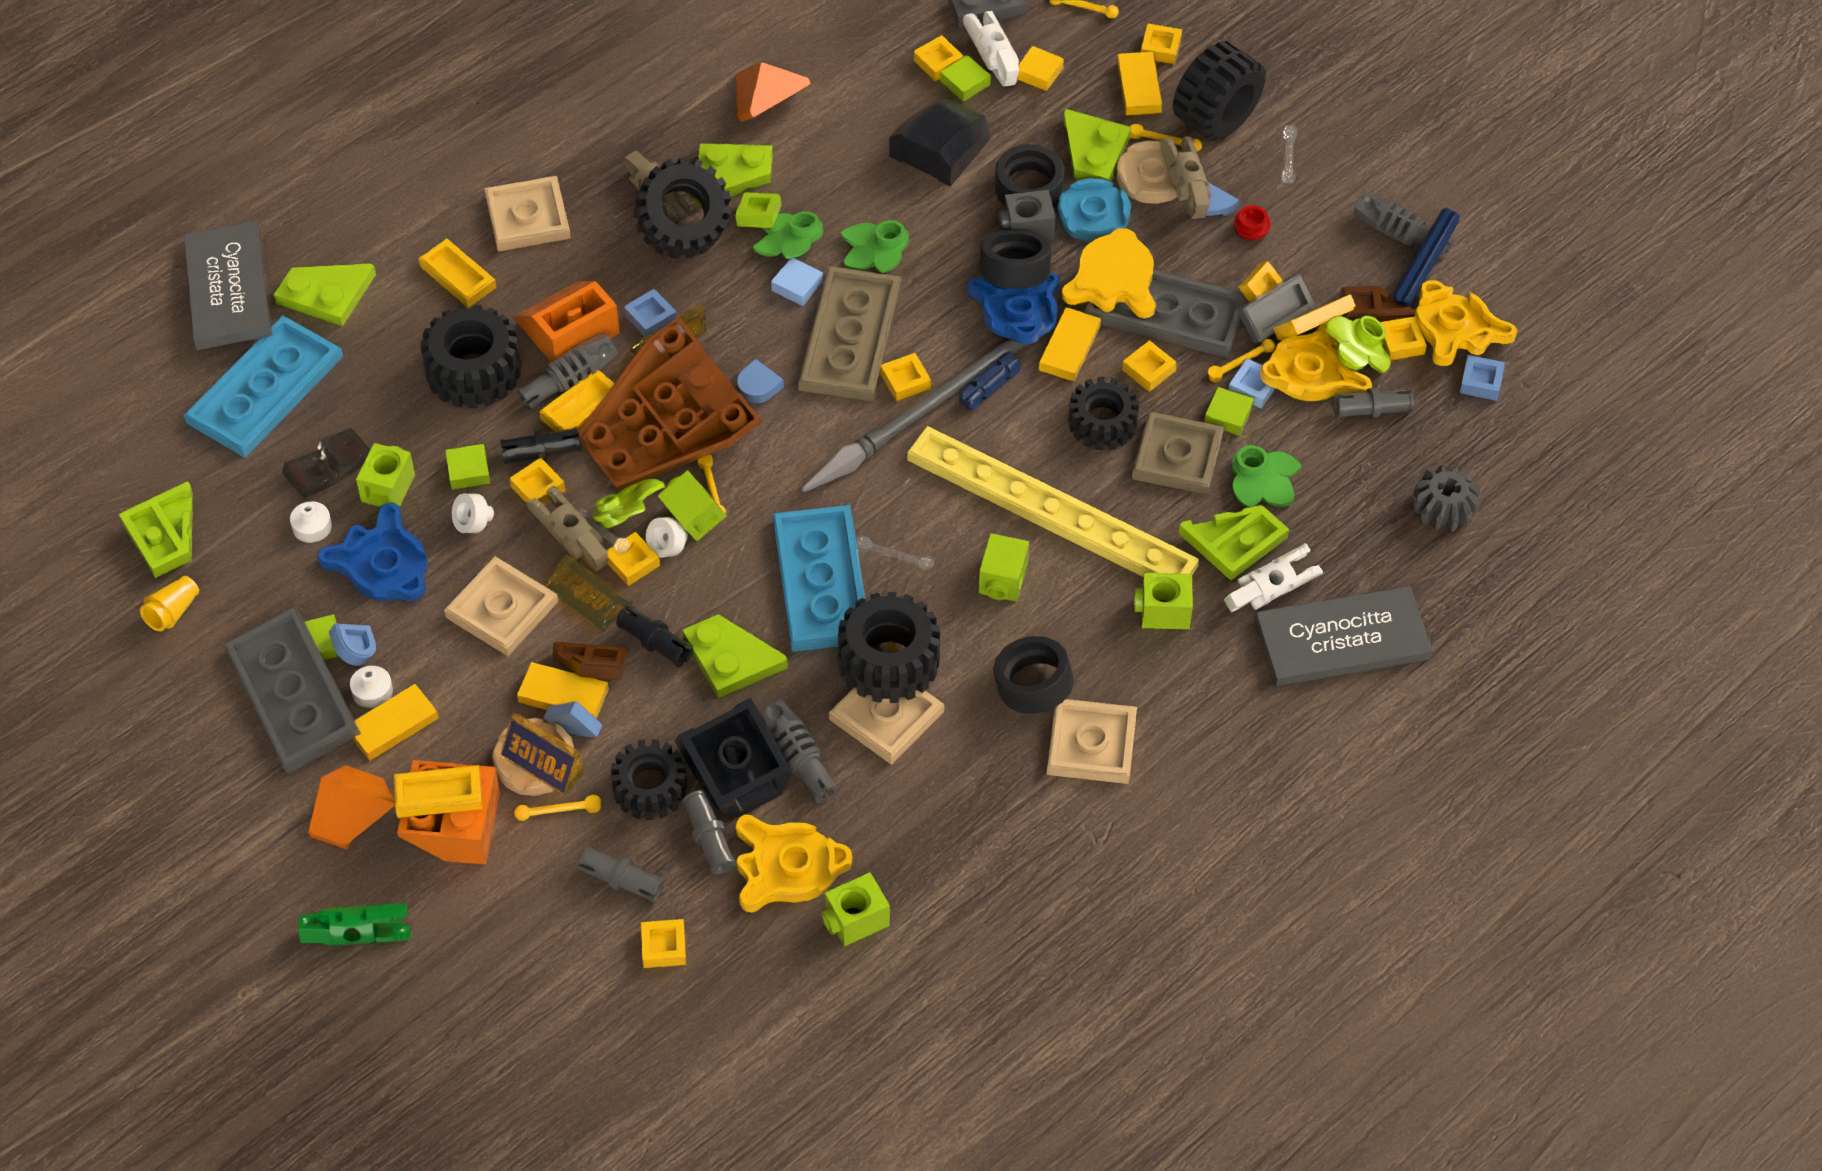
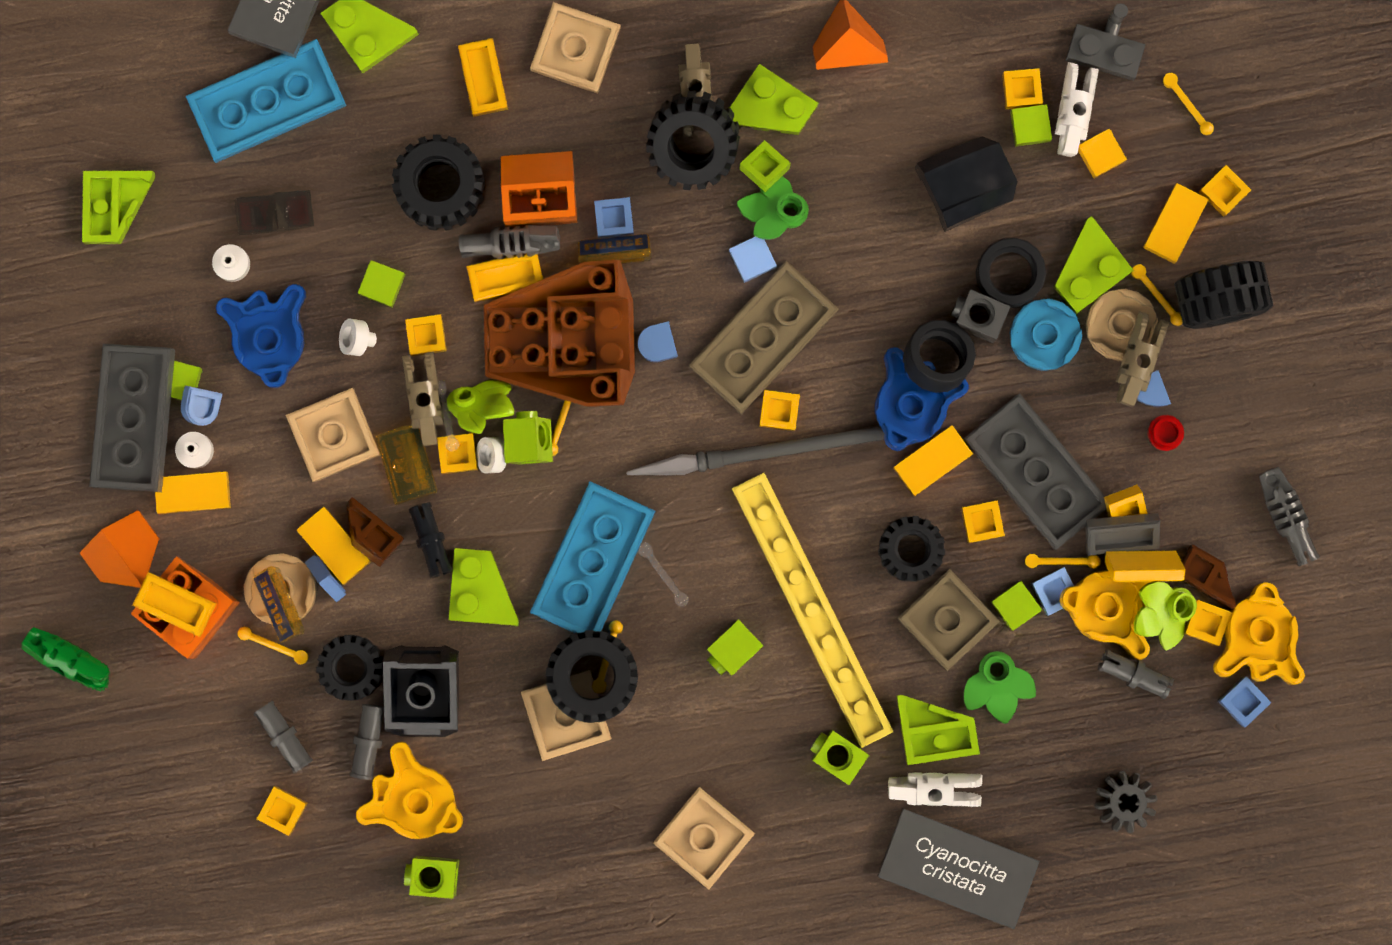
camera: 30 degrees right, 30 degrees up
(168, 604) = (81, 279): yellow cone -> none
(385, 475) = (293, 259): lime brick -> none
(540, 445) = (447, 302): black pin -> none
(799, 749) = (476, 711): dark grey hinge -> none
(875, 245) = (832, 263): bright green plate -> none
(989, 381) = (843, 458): dark blue axle -> none
(1028, 652) = (680, 736): black tyre -> none
(1113, 272) = (1012, 418): yellow tile -> none
(1290, 133) = (1268, 354): clear hinge -> none
(1426, 257) = (1280, 564): dark blue axle -> none

